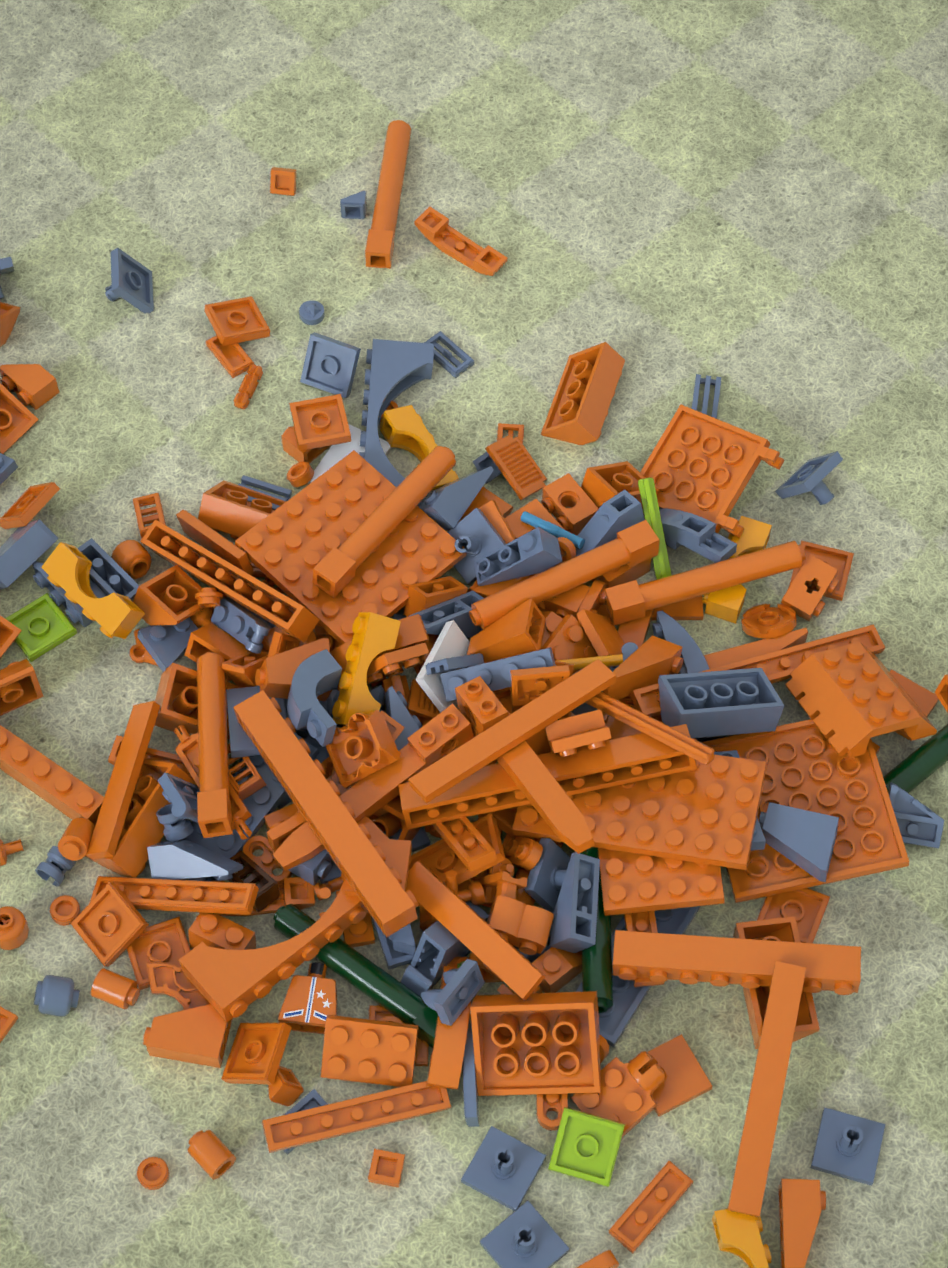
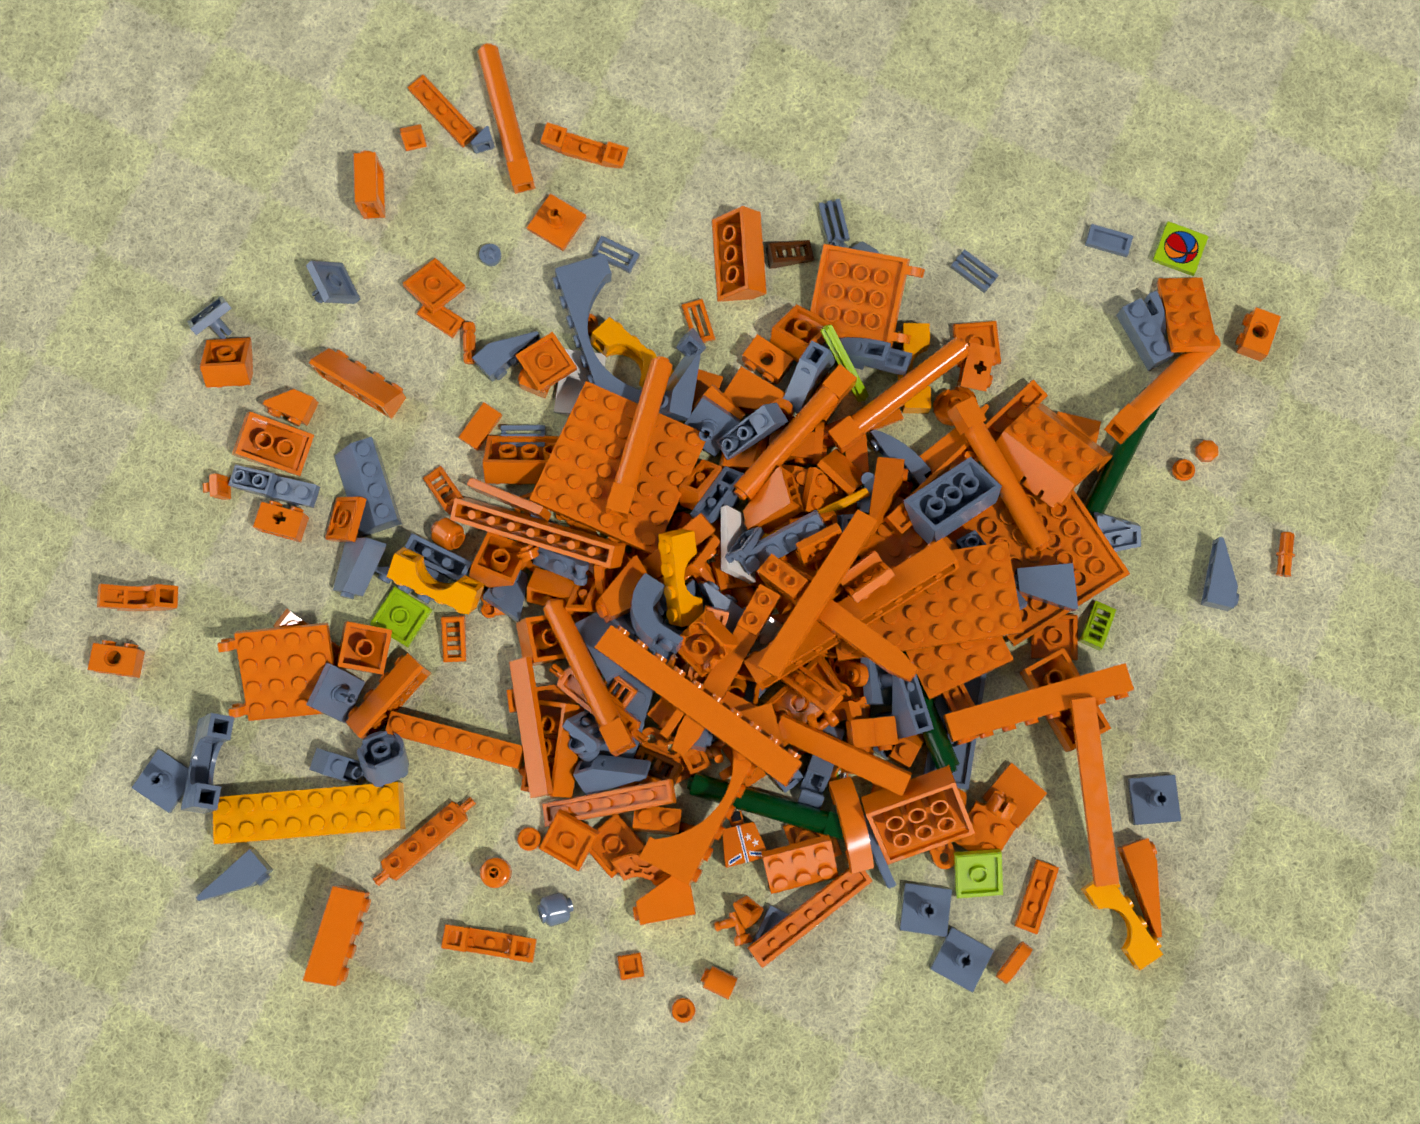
camera: 20 degrees left, 20 degrees up
(54, 866) = (510, 804): sand blue wheel -> none
(74, 469) = (366, 477): none -> sand blue slope
(76, 839) = (516, 787): orange brick -> none
(102, 654) = (462, 638): none -> orange slope
(110, 382) = (358, 381): none -> orange slope
(114, 1097) = (630, 966): none -> orange tile
(115, 989) = (596, 887): orange brick -> none
(214, 205) = (369, 185): none -> orange window
(220, 468) = (480, 426): none -> orange tile
(256, 1053) = (720, 897): orange tile -> none
(262, 1092) = (734, 921): none -> orange piece
(272, 408) = (500, 355): none -> sand blue slope
(300, 474) = (545, 408): orange tile -> none
(325, 168) = (443, 111): none -> orange tile
(330, 365) = (529, 303): sand blue tile -> none
(386, 1168) = (844, 941): orange tile -> none
(397, 305) = (556, 222): none -> orange tile
(459, 990) = (847, 815): sand blue tile -> none
(517, 466) = (713, 340): orange window -> none
(551, 528) = (766, 392): dark azure piece -> none
(630, 417) = (782, 261): none -> reddish brown slope
(652, 727) = (922, 552): orange axle -> none
(774, 631) = (970, 421): none -> orange brick
(810, 478) = (943, 267): sand blue tile -> none
(836, 933) = (1090, 641): none -> lime slope
(845, 477) = (965, 254): none -> sand blue tile

